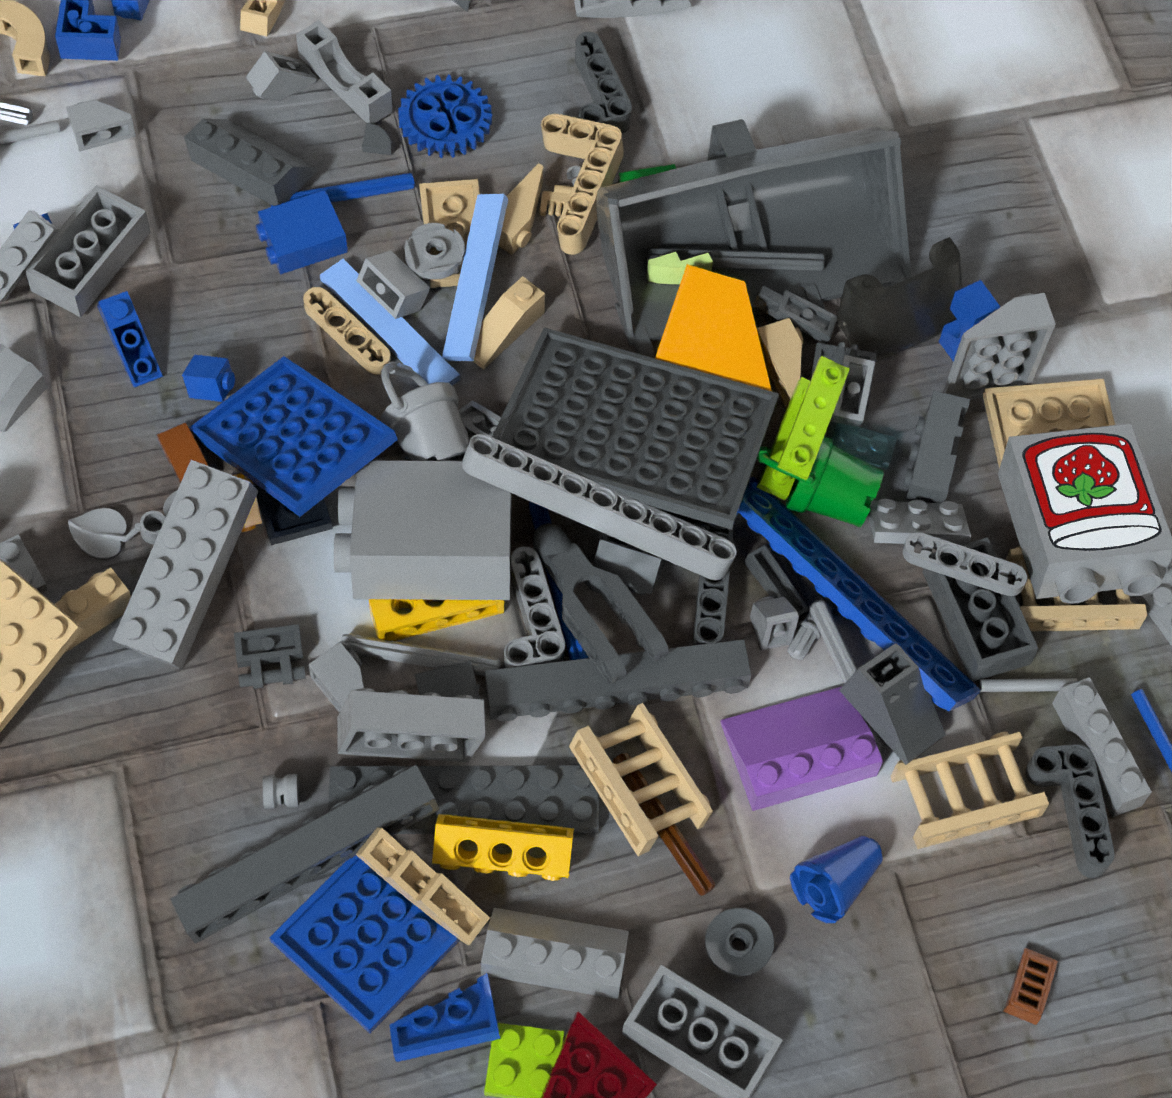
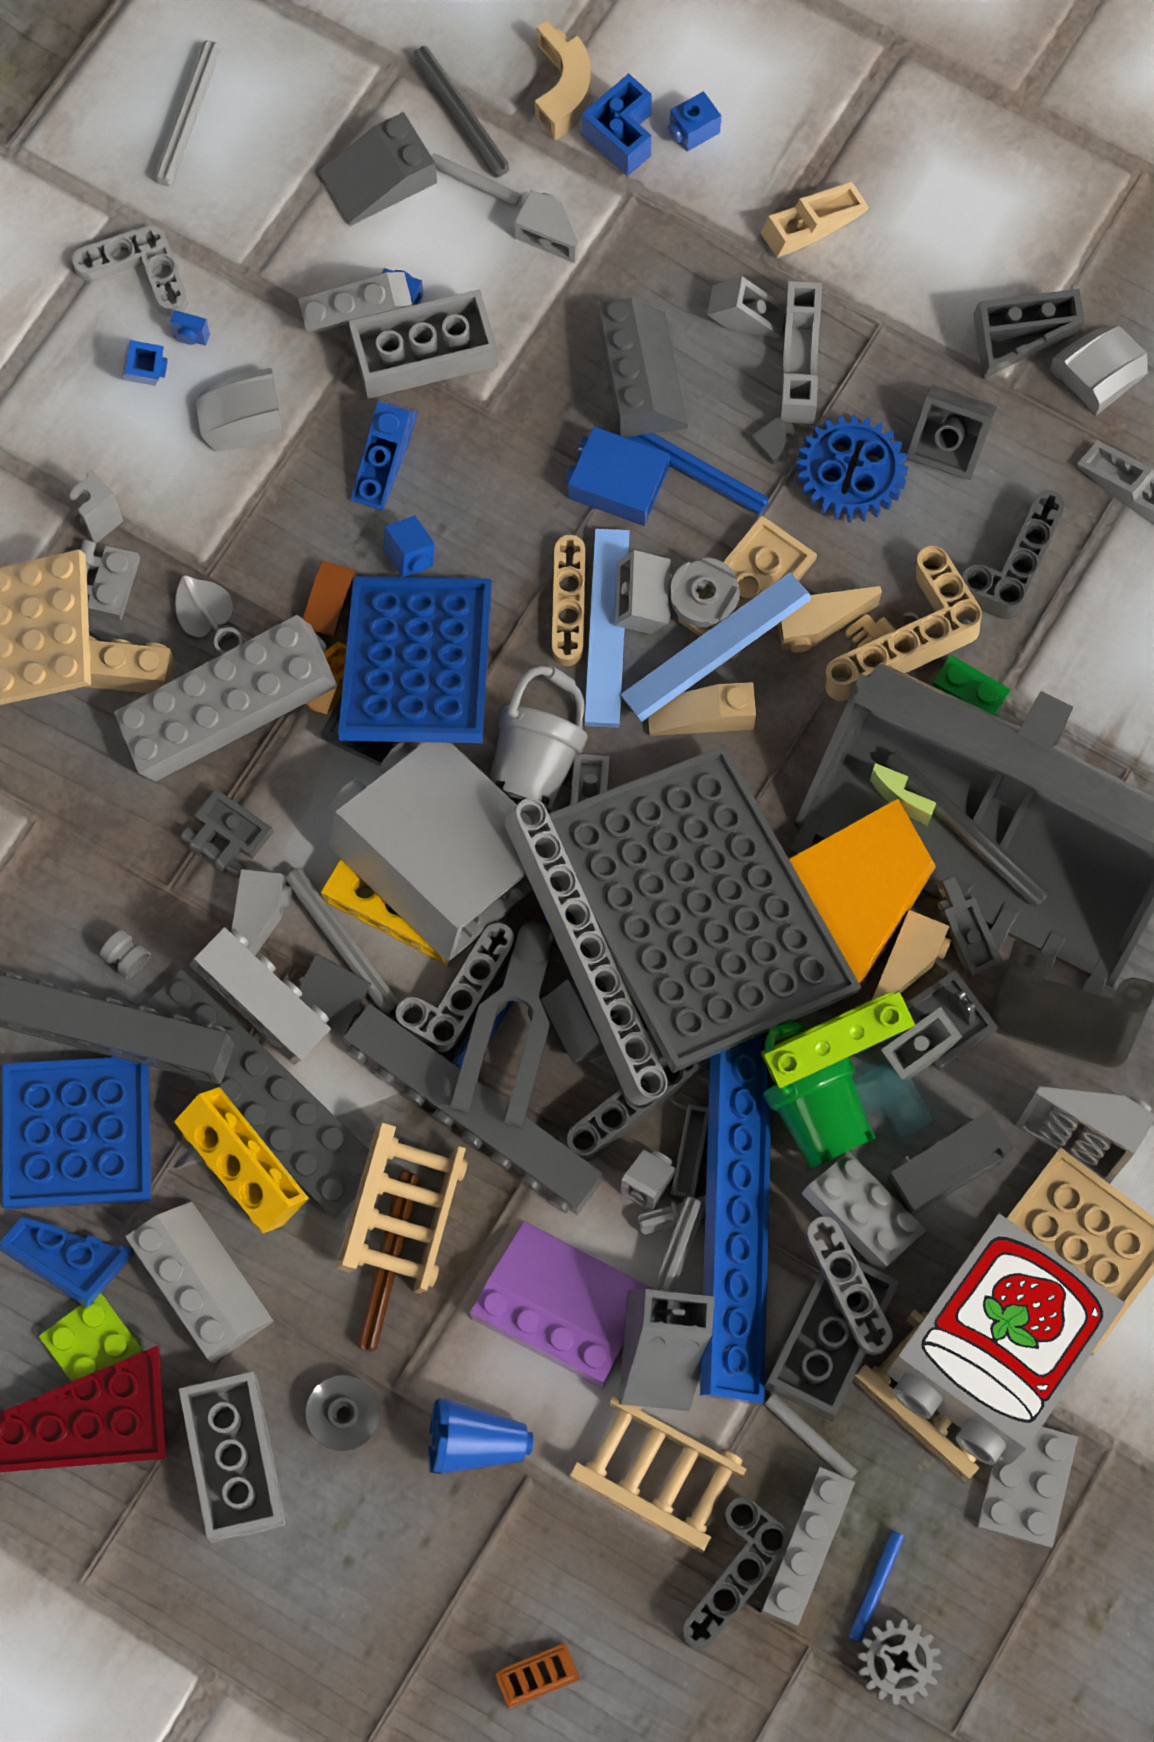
camera: 50 degrees right, 10 degrees up
(423, 886) = (142, 1134): tan slope -> none
(484, 50) = (951, 432): none -> dark grey slope
(969, 307) = (1101, 1069): blue arch -> none

